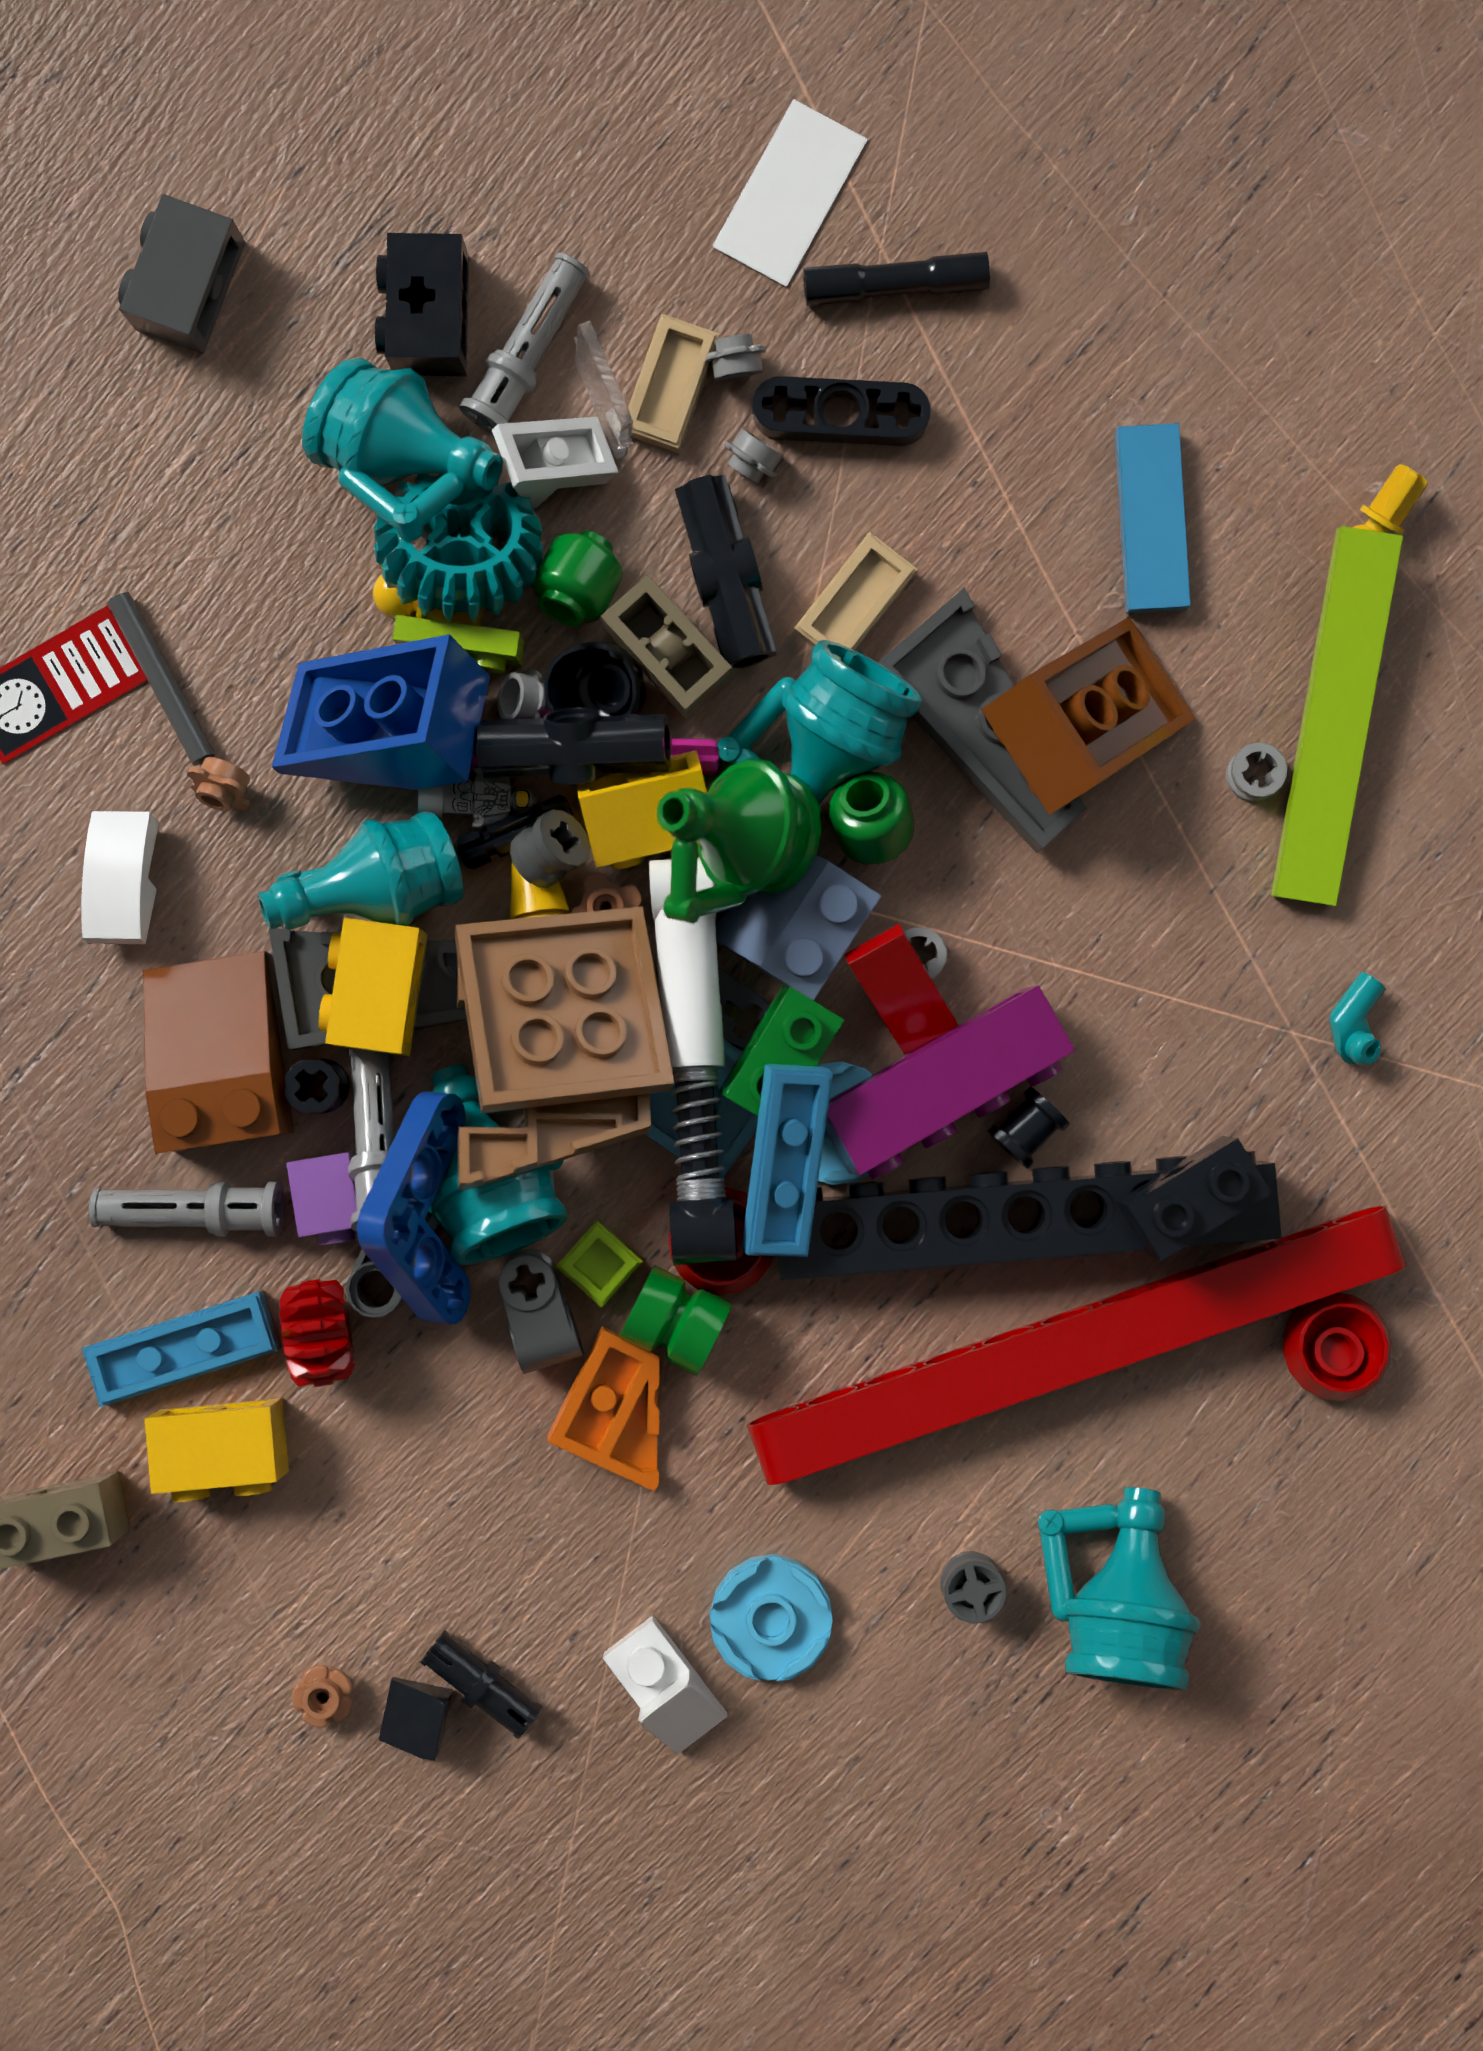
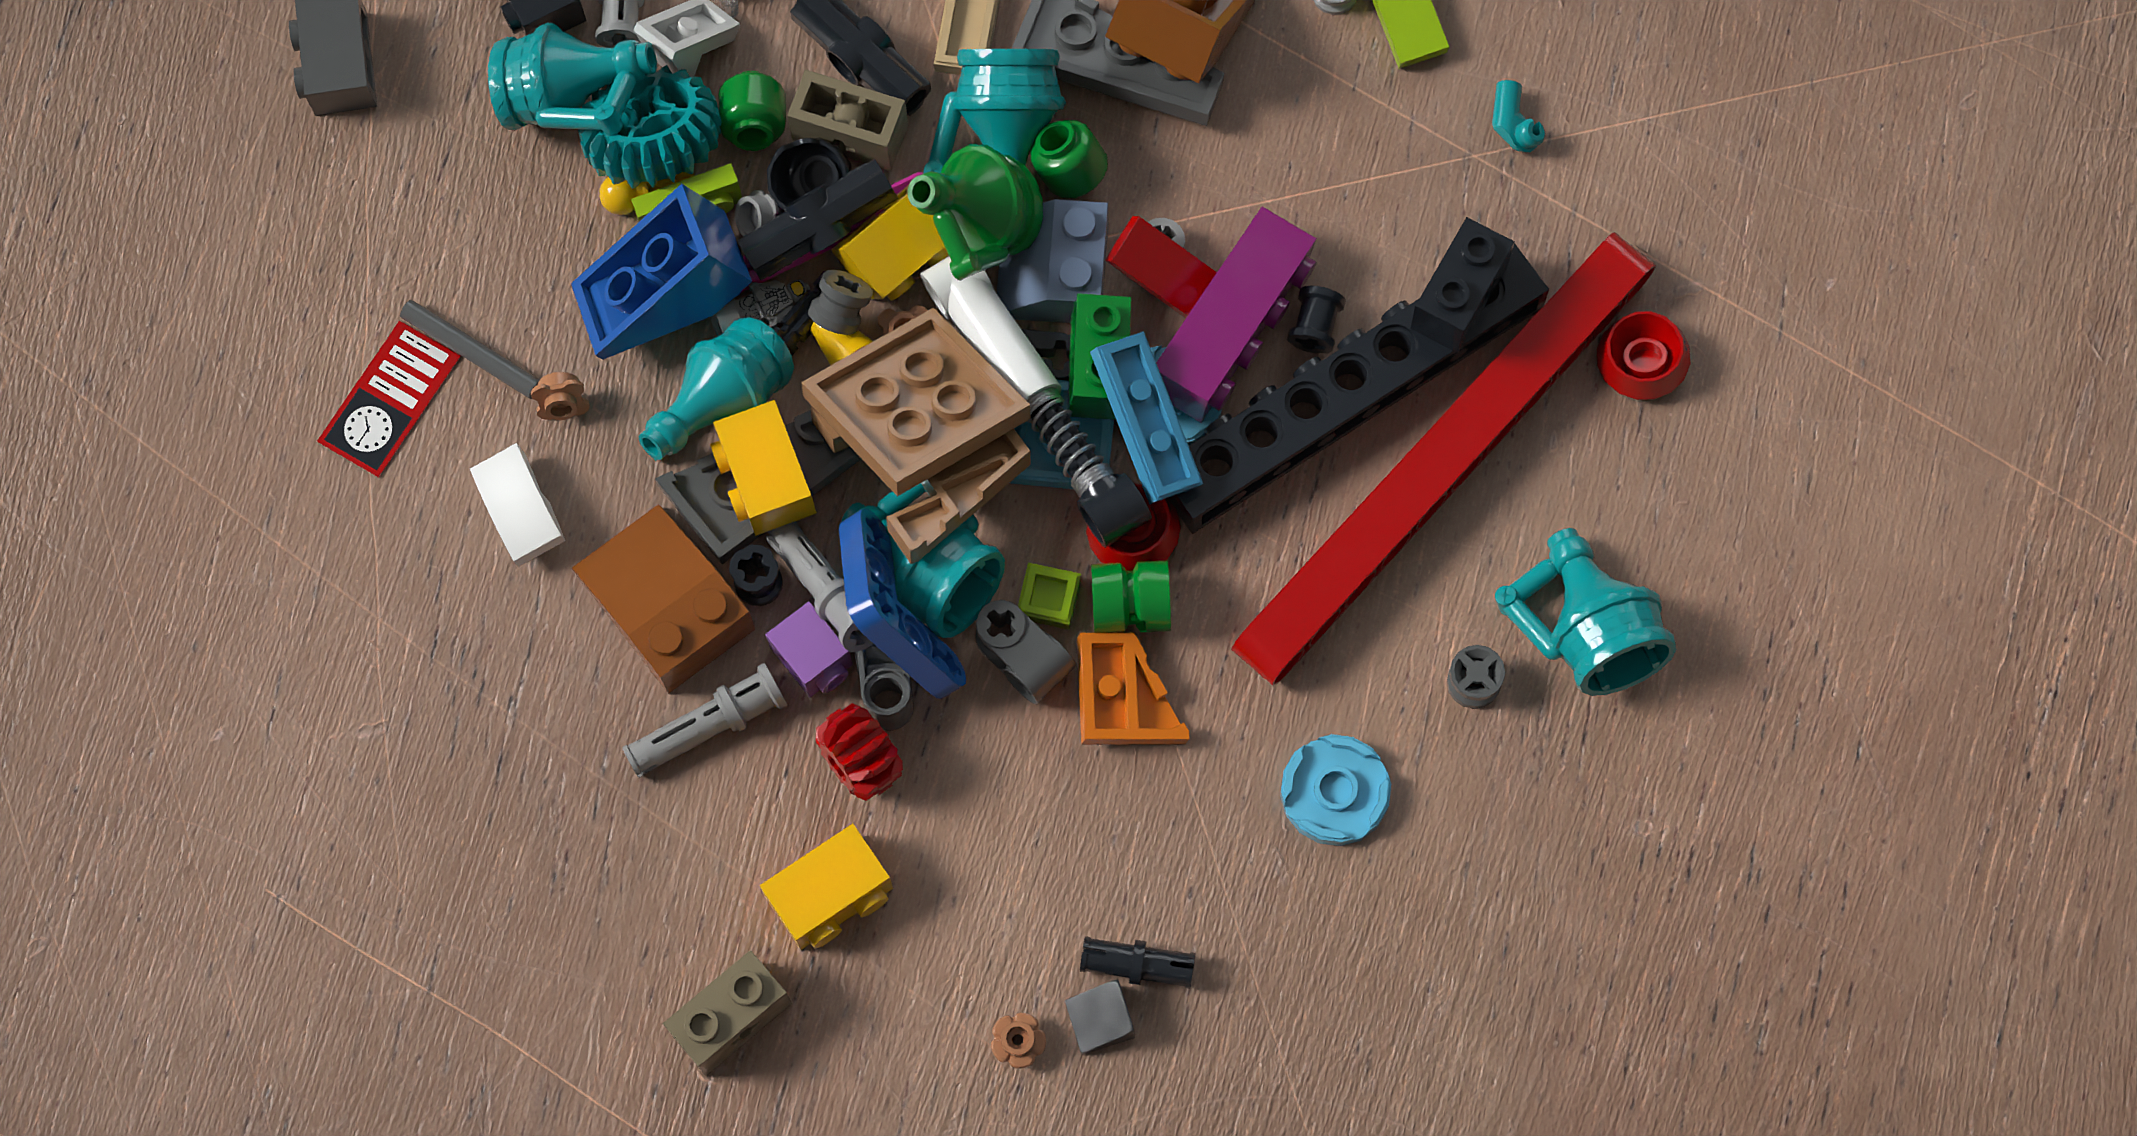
camera: 30 degrees left, 15 degrees down
(181, 1348) = (756, 836): dark azure tile -> none
(664, 1685) = (1284, 886): white slope -> none

